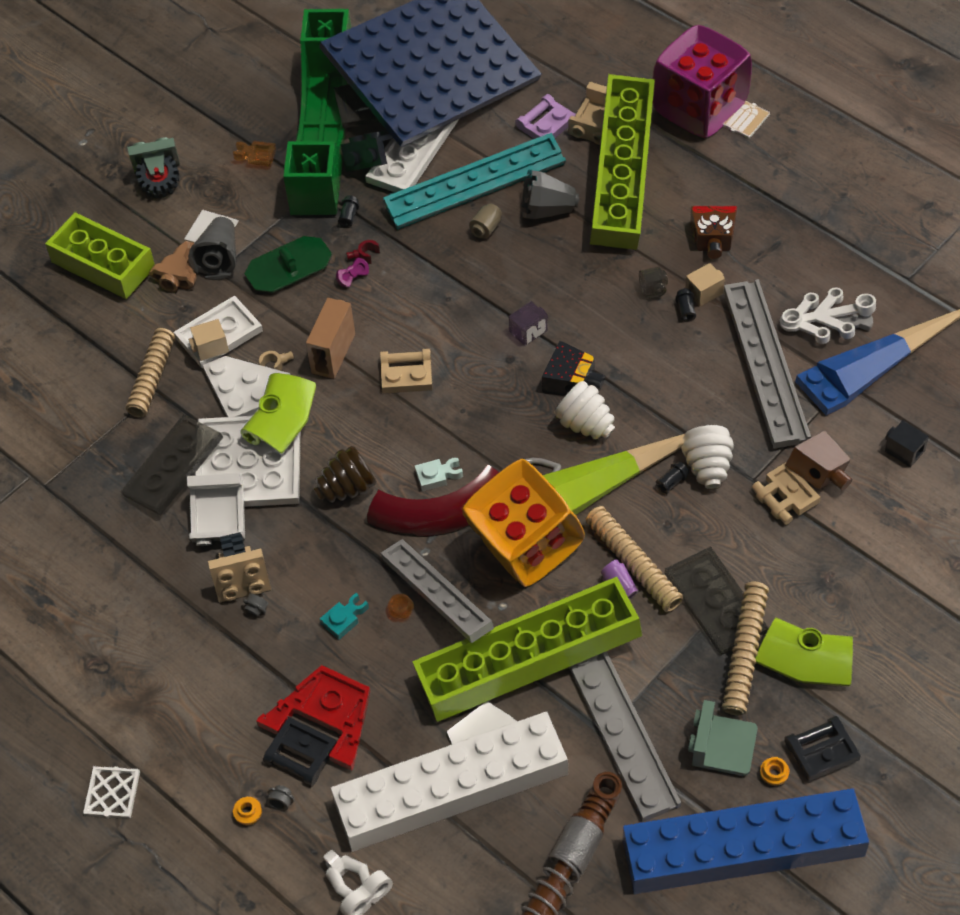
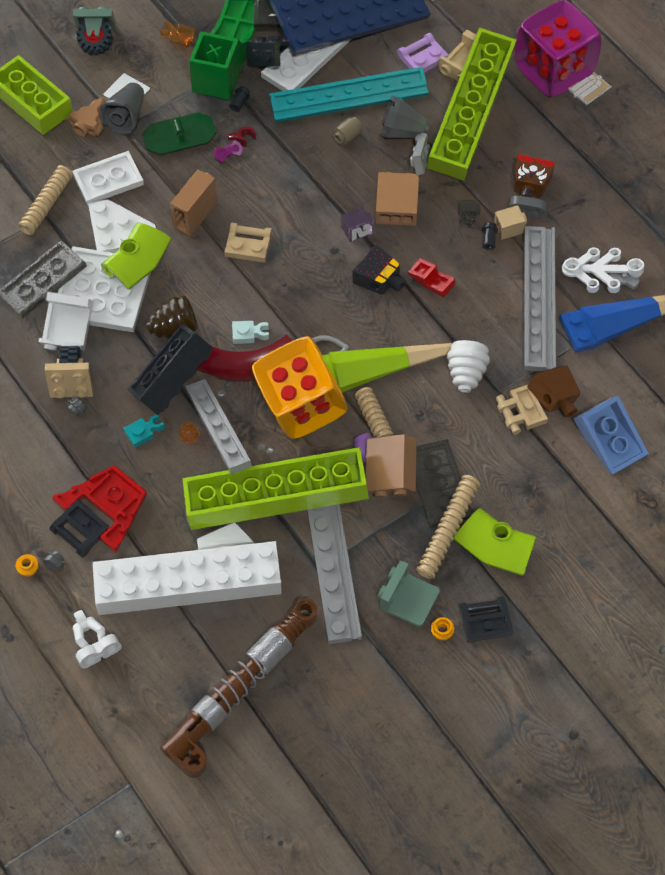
camera: 10 degrees right, 5 degrees up
(208, 340) = (96, 183): tan brick -> none
(280, 359) = (146, 207): tan piece -> none
(359, 536) = (170, 369): none -> black slope
(567, 285) = (397, 198): none -> medium nougat brick
(579, 228) = (420, 154): none -> light grey hinge
(585, 412) = (379, 307): white piece -> none
(628, 364) = (429, 277): none -> red slope
(658, 590) = (391, 465): none -> medium nougat brick
(672, 477) = (434, 376): black pin -> none
(726, 261) = (530, 206): none -> dark grey beam
(744, 841) = (401, 677): blue brick -> none
(899, 499) = (611, 434): none -> medium blue slope
(906, 443) = (631, 390): black brick -> none

